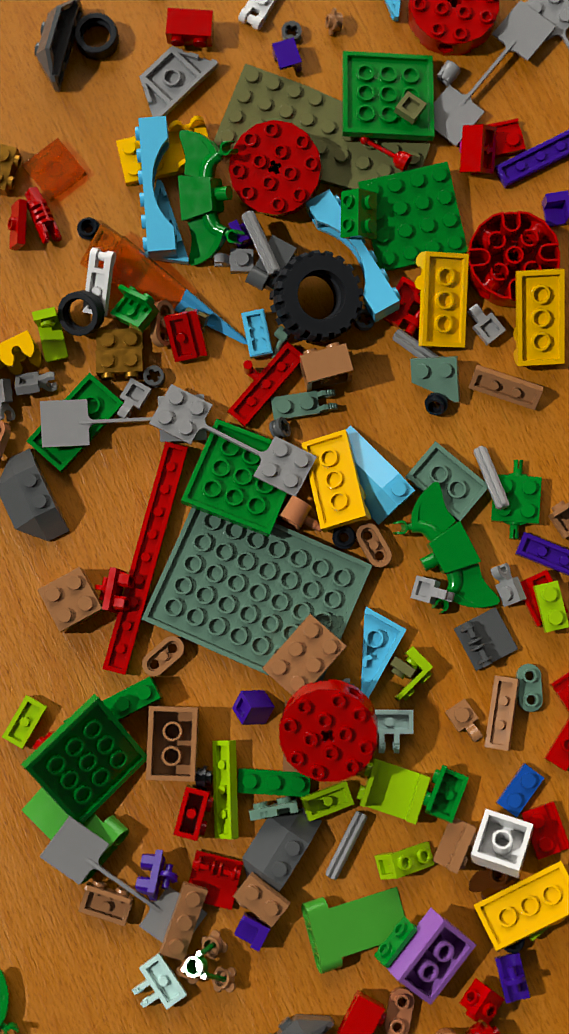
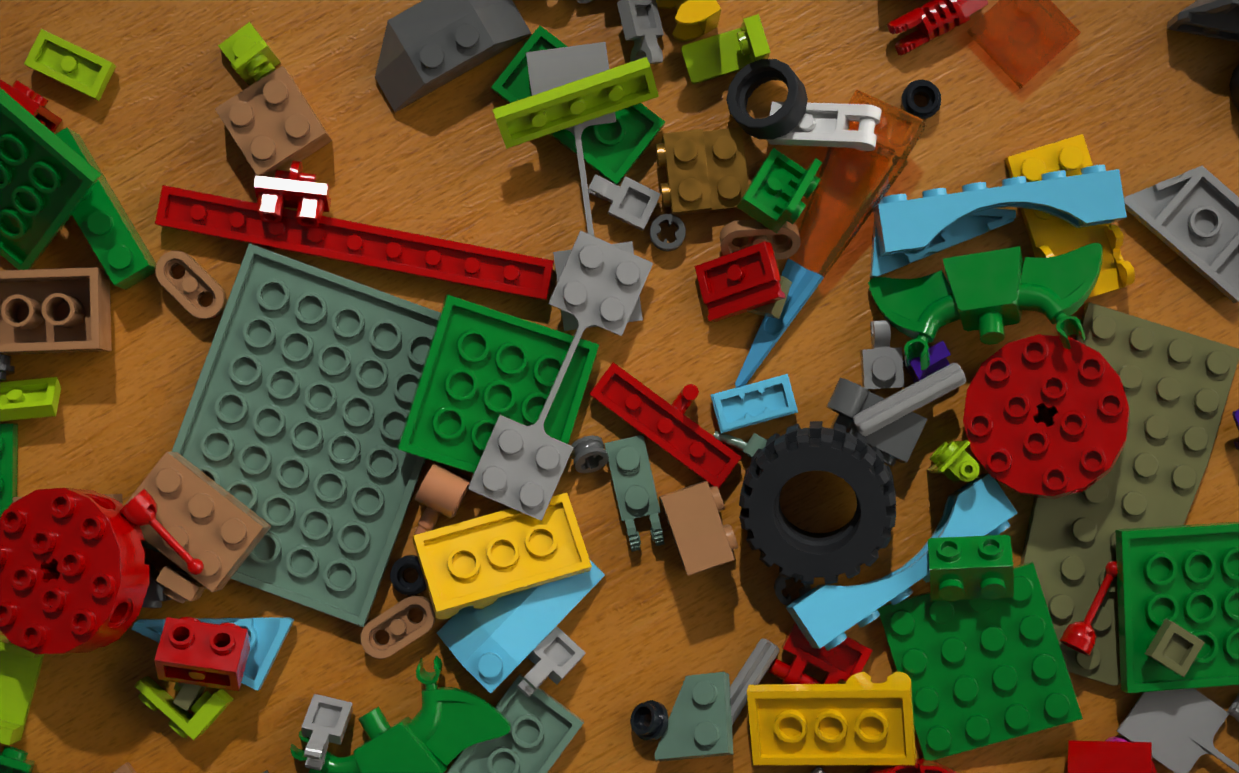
camera: 80 degrees right, 5 degrees up
(28, 613) = (249, 54): none -> lime bracket
(74, 418) = (576, 102): none -> lime plate
(253, 707) = (114, 441): dark purple panel -> none
(295, 680) = (143, 511): none -> red hinge
(298, 221) = (954, 462): none -> lime hinge
(341, 668) = (179, 584): none -> medium nougat plate
(382, 656) = (202, 653): none -> red brick
(395, 723) = (102, 677): light aqua hinge -> none
(399, 457) = (552, 659): none -> light grey plate

